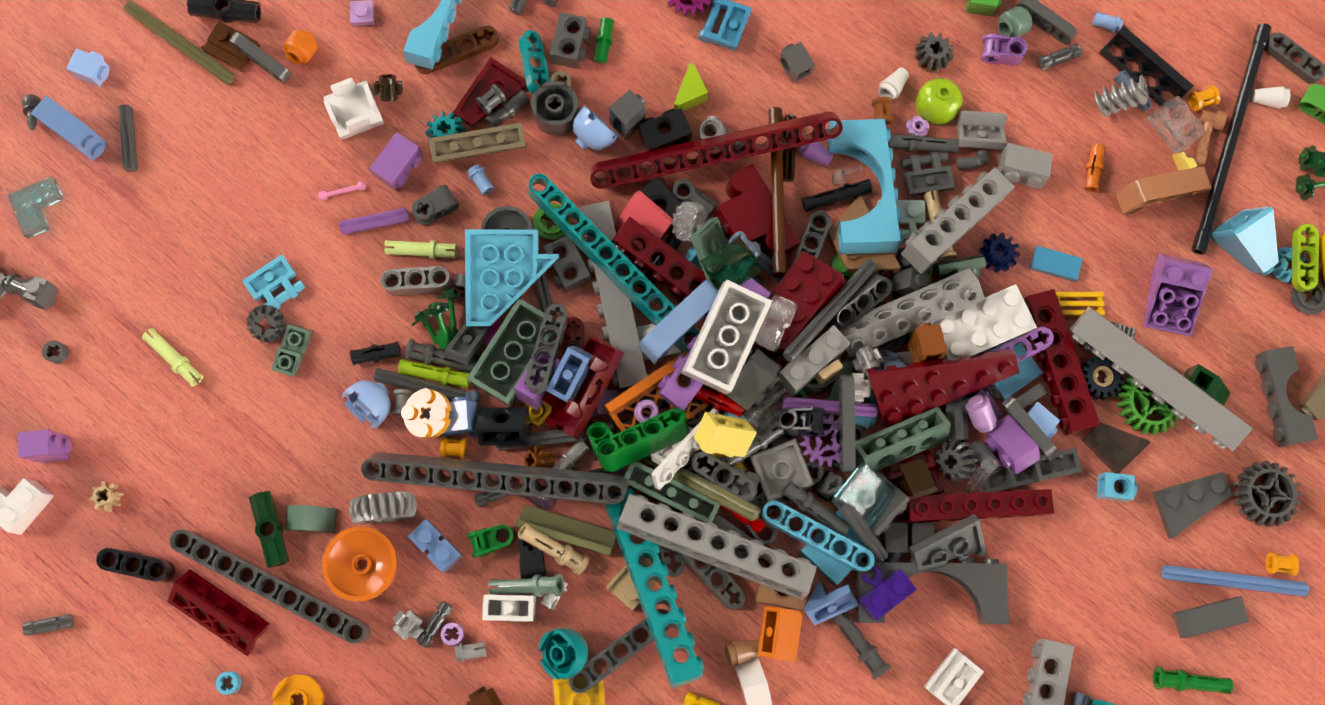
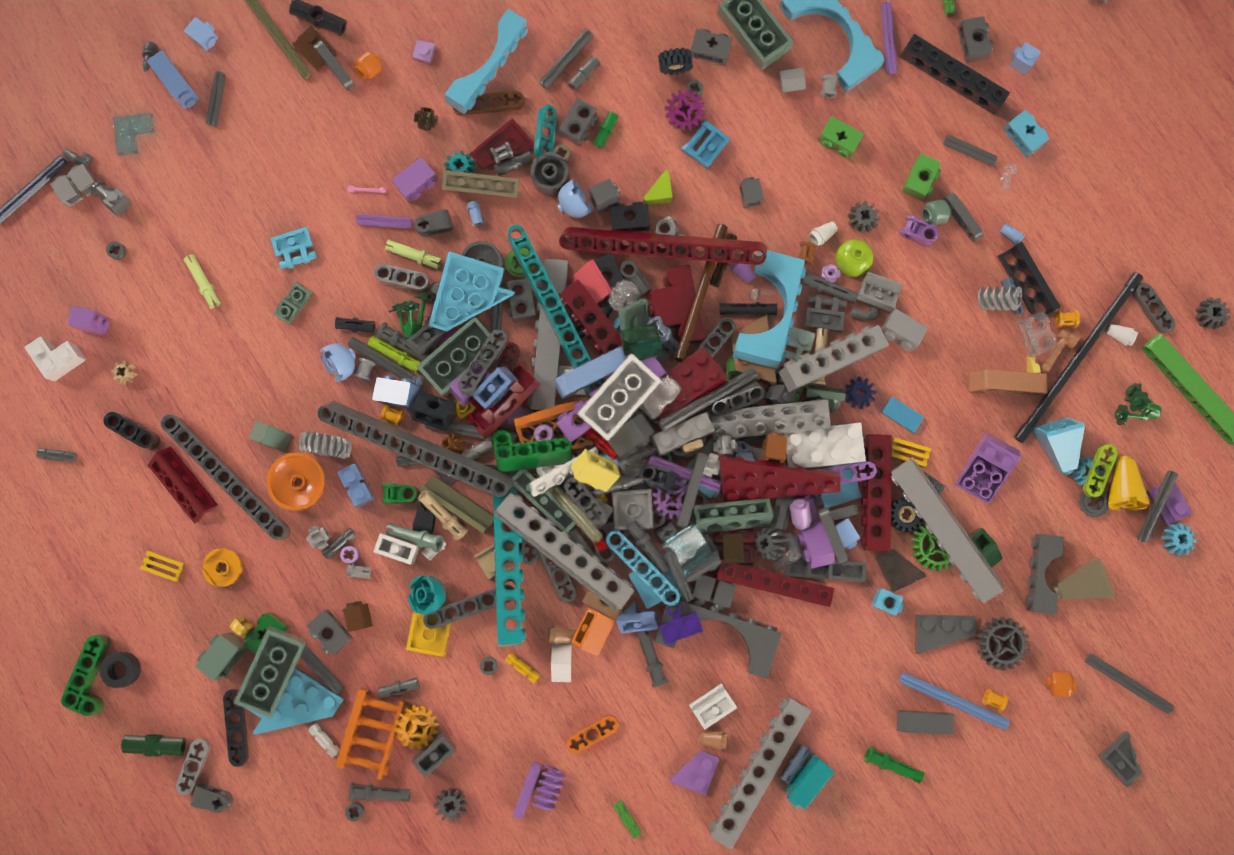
camera: 20 degrees right, 5 degrees up
(236, 682) = (169, 537): medium azure bush -> none
(265, 513) = (236, 447): dark green piece -> none
(275, 319) = (286, 275): dark grey gear -> none
(352, 108) = (393, 126): white panel -> none
(415, 408) = (371, 377): plate -> none
(951, 543) = (747, 604): dark grey wing -> none
(1059, 56) = (963, 250): dark grey axle -> none
(1095, 167) = (960, 348): orange pin -> none

